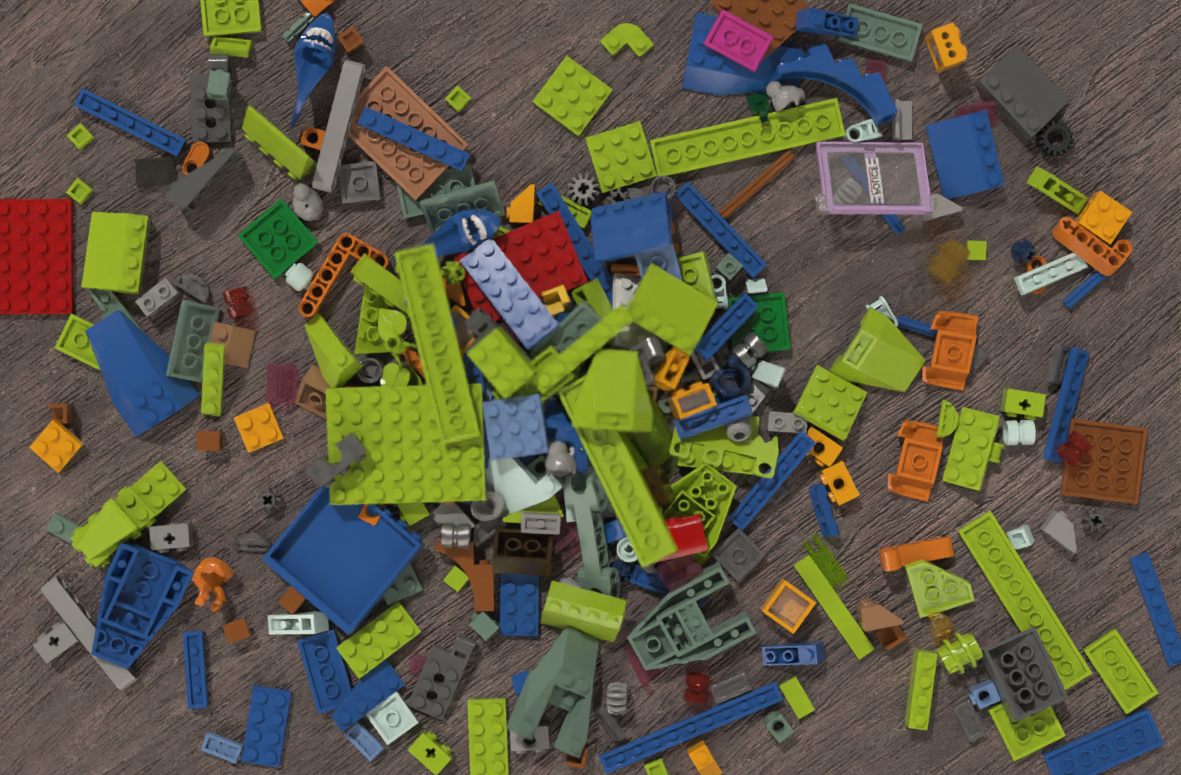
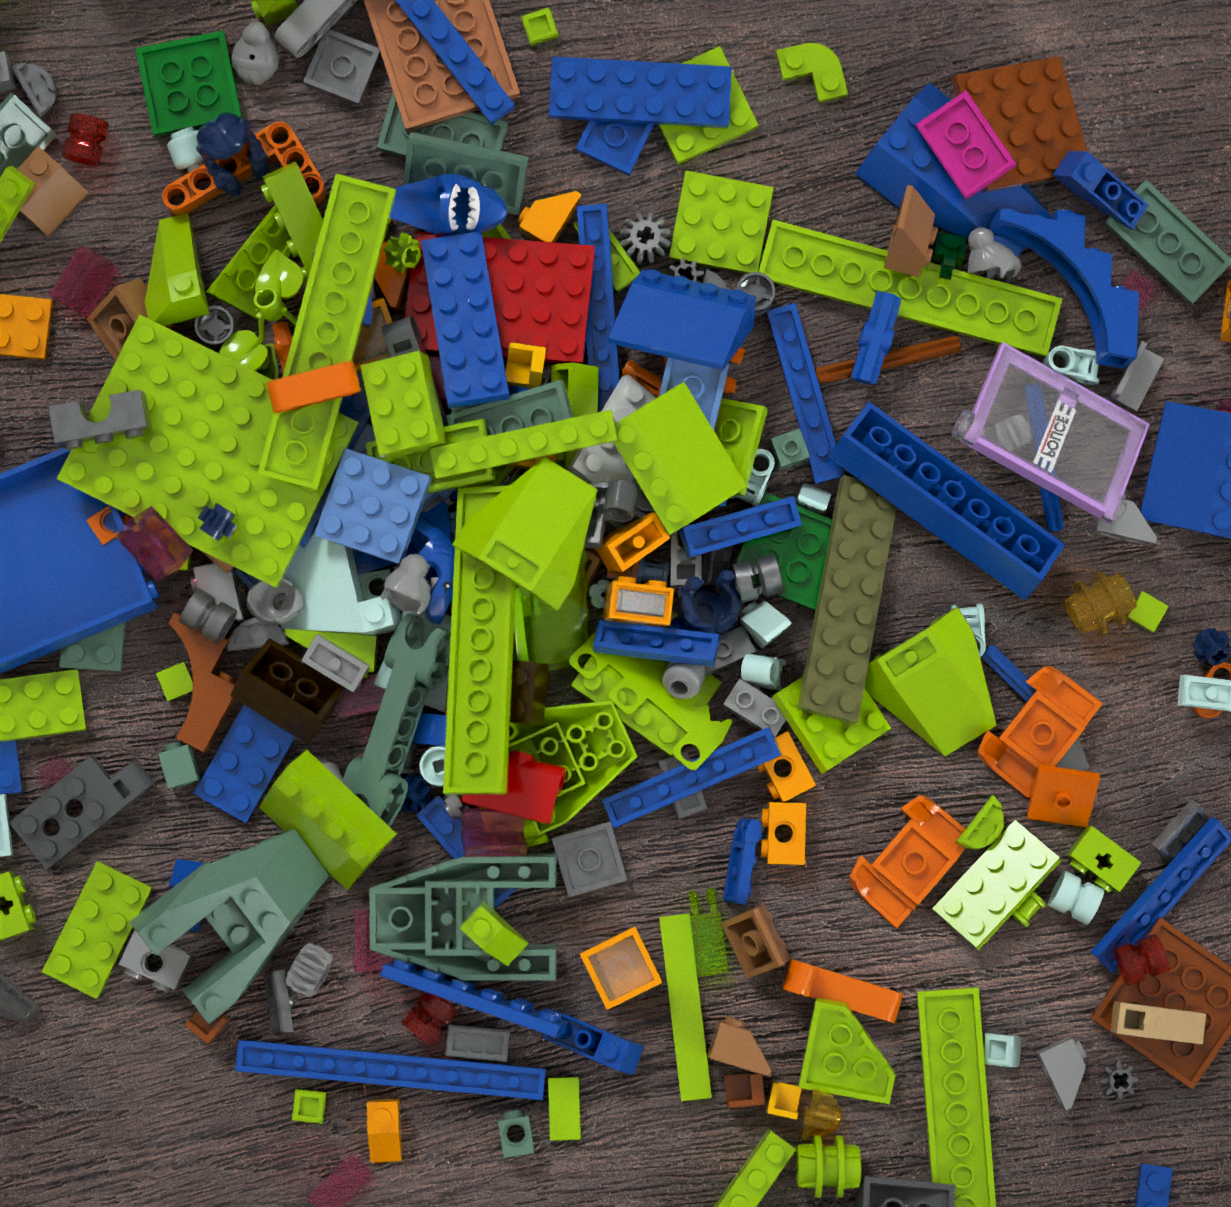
camera: 20 degrees right, 5 degrees down
(317, 264) = (226, 138): none -> dark blue hair
(405, 512) = (154, 543): none -> clear pink brick
(434, 482) = (217, 521): none -> dark blue gear
(447, 380) = (313, 387): none -> orange beam
(535, 139) = (614, 143): none -> blue plate
(536, 107) = (640, 92): none -> blue plate
(709, 626) = (493, 934): none -> lime slope
(724, 665) = (487, 1001): none -> blue plate
(733, 108) = (911, 235): none -> medium nougat slope
(744, 177) = (876, 338): none -> blue piece
(779, 399) = (762, 671): none -> light aqua piece
(806, 334) = (847, 602): none -> olive plate
(832, 249) = (947, 501): none -> blue brick
(855, 551) = (756, 941): none -> medium nougat slope
(915, 629) = (783, 1099): none -> yellow panel
(983, 379) = (1063, 795): none -> orange plate
(1100, 479) = (1158, 1022): none -> tan slope

